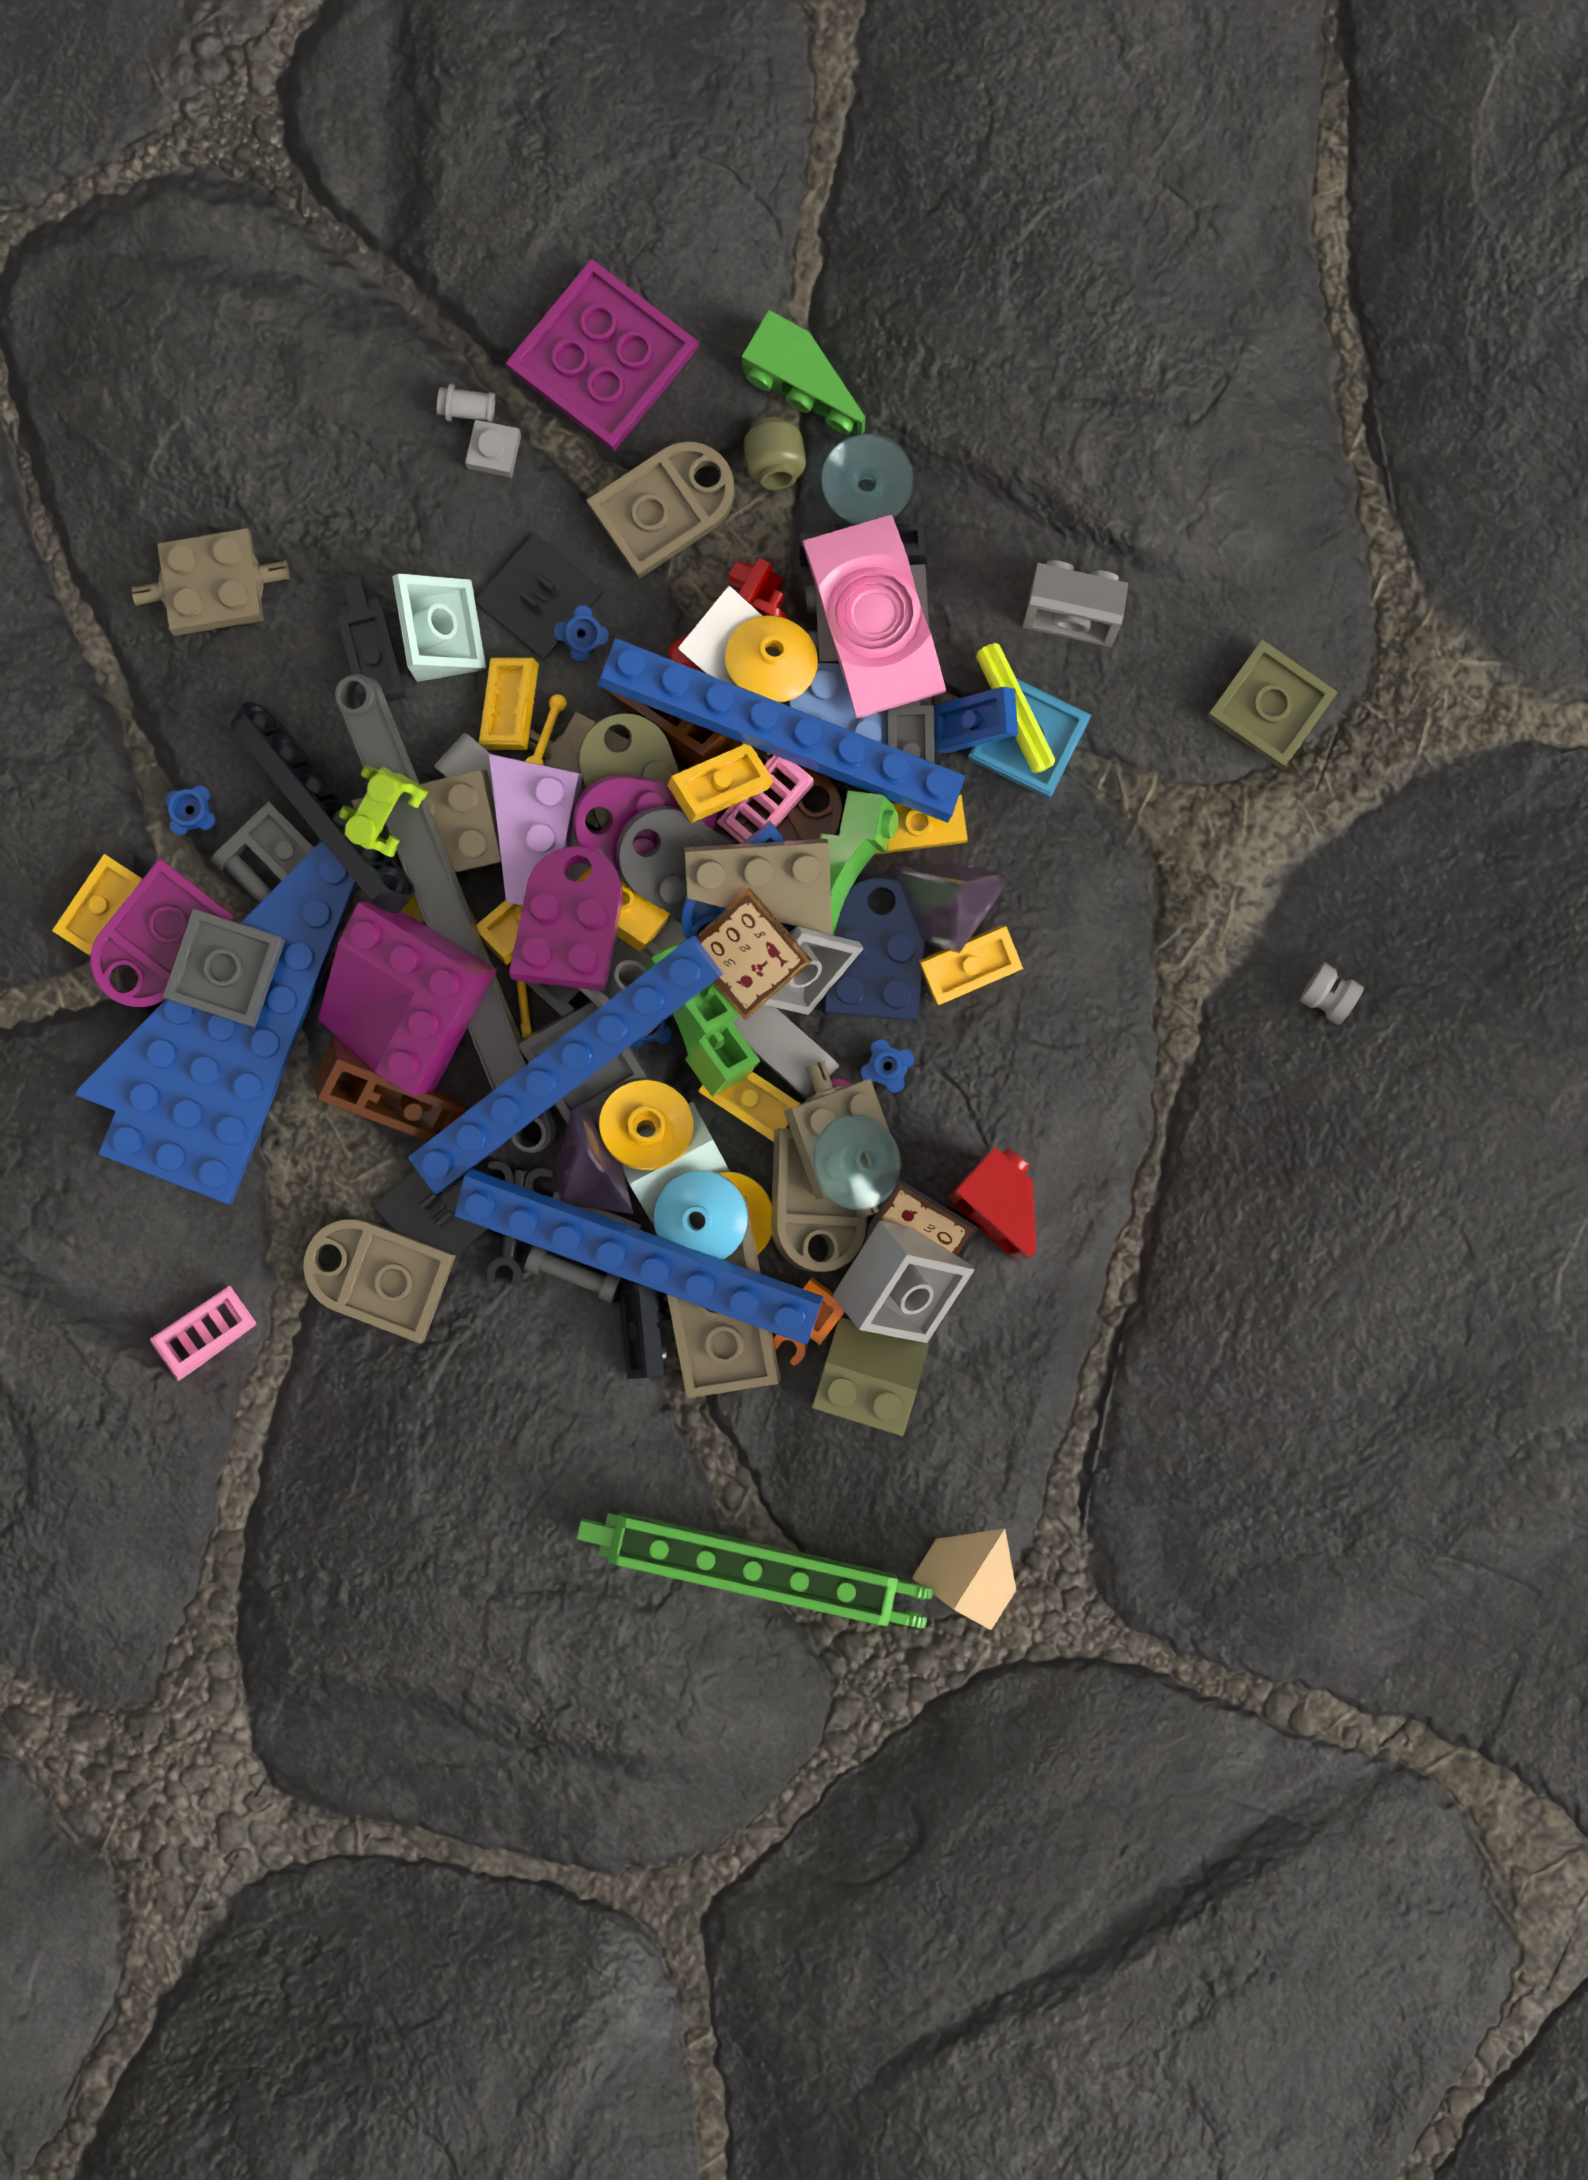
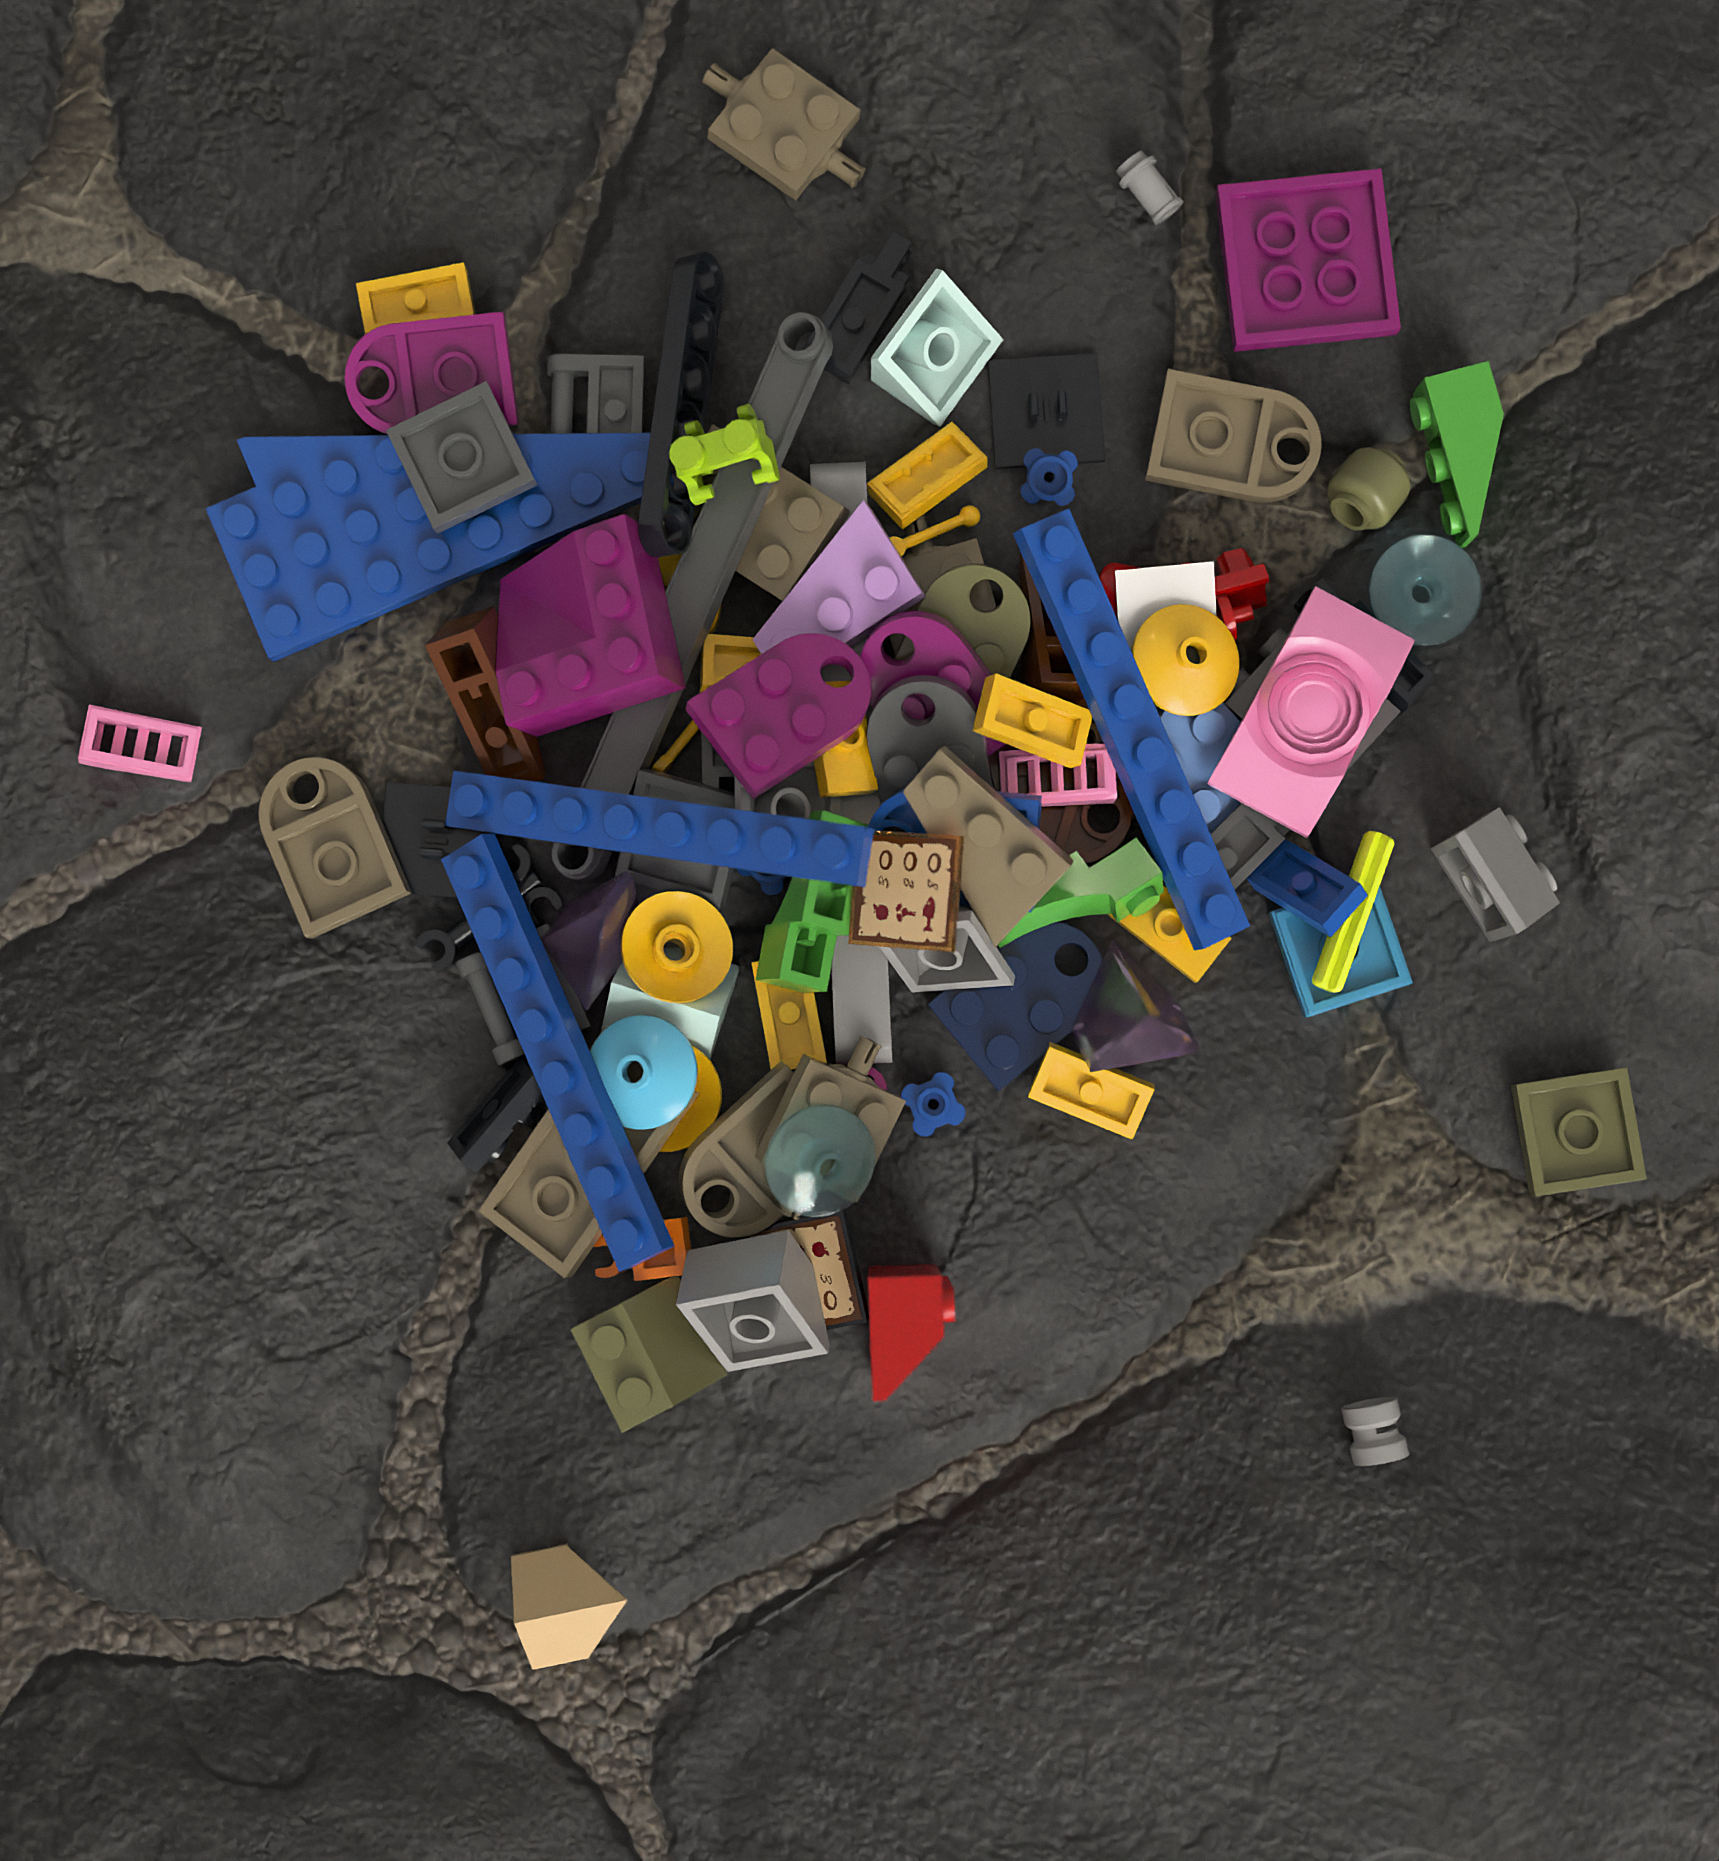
camera: 45 degrees right, 0 degrees up
(178, 803) = (570, 282): blue plate -> none
(493, 448) = (1134, 247): light grey plate -> none
(753, 1568) = (385, 1414): bright green hinge -> none

